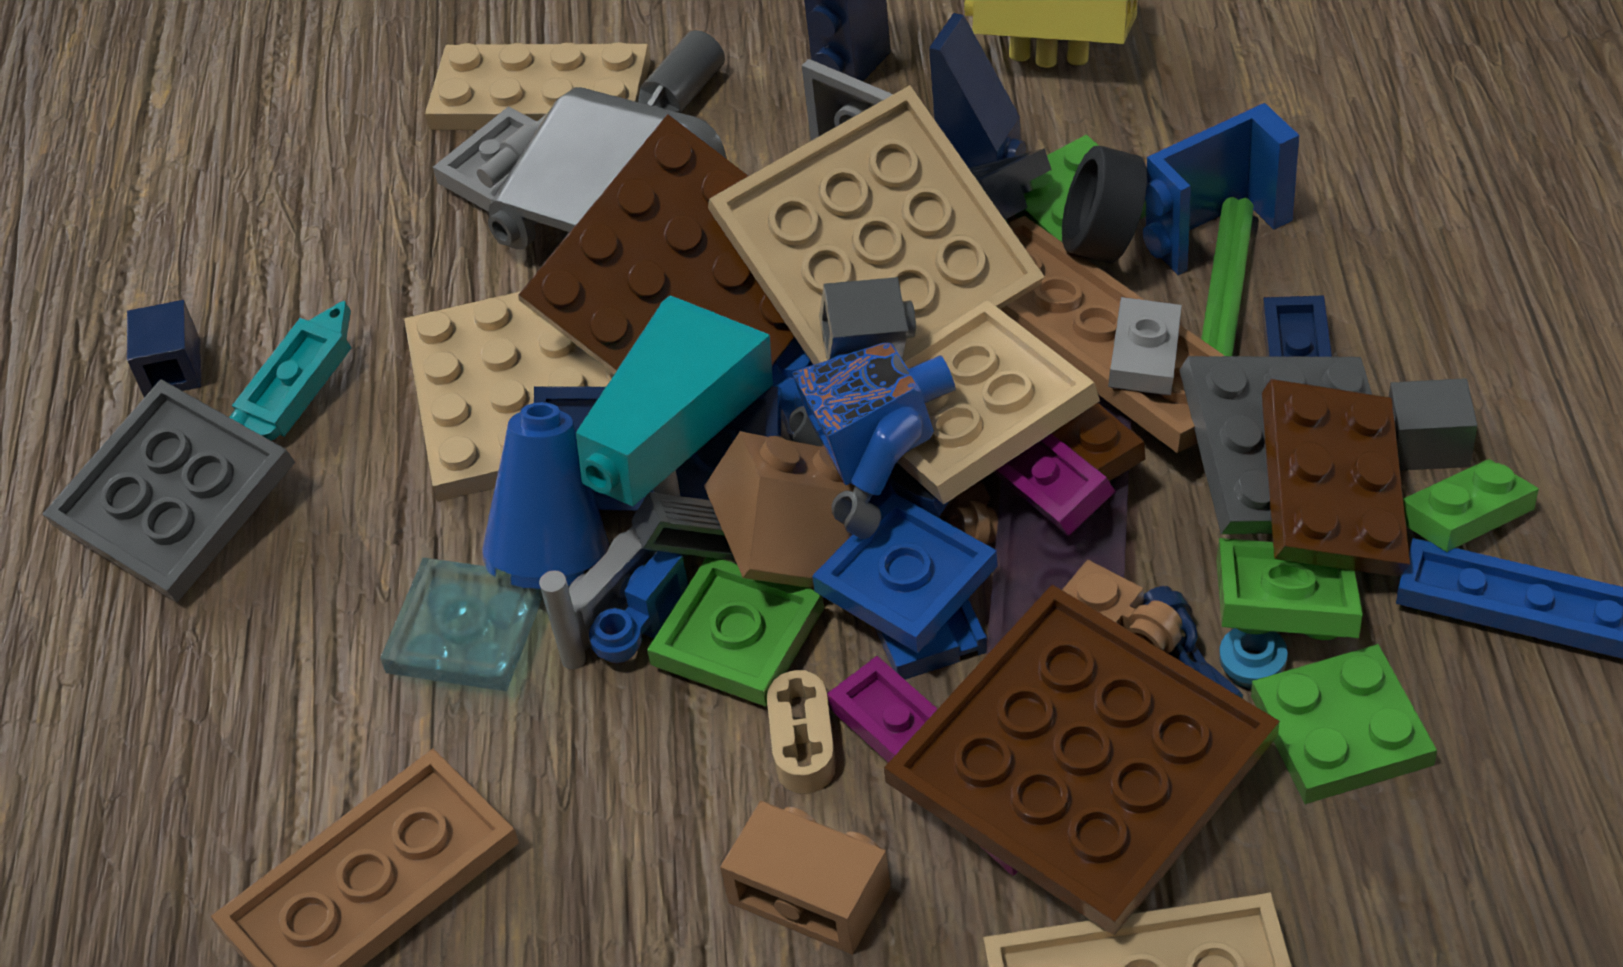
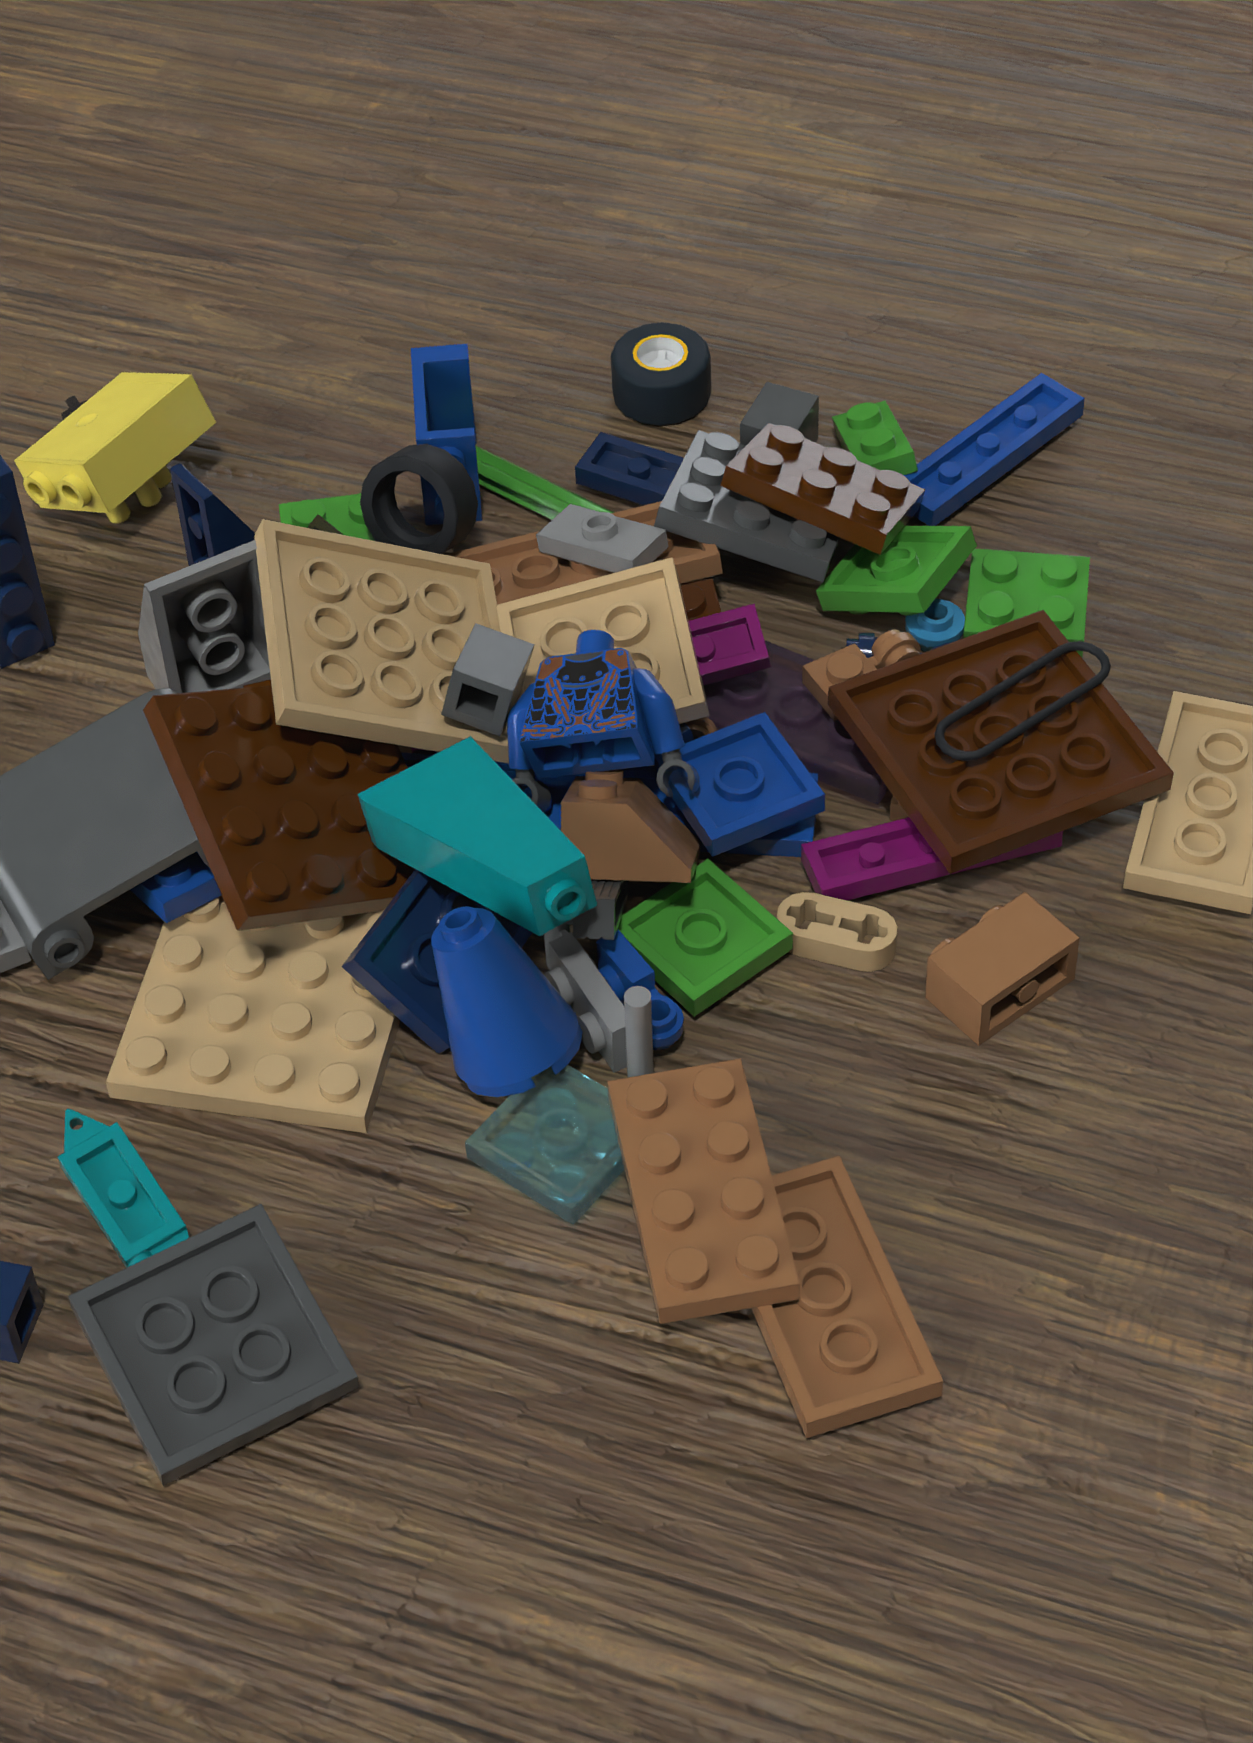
camera: 70 degrees left, 0 degrees up
(424, 737) = (702, 1191): none -> medium nougat plate
(1125, 774) = (1033, 720): none -> black piece
(1443, 306) = (661, 373): none -> black wheel

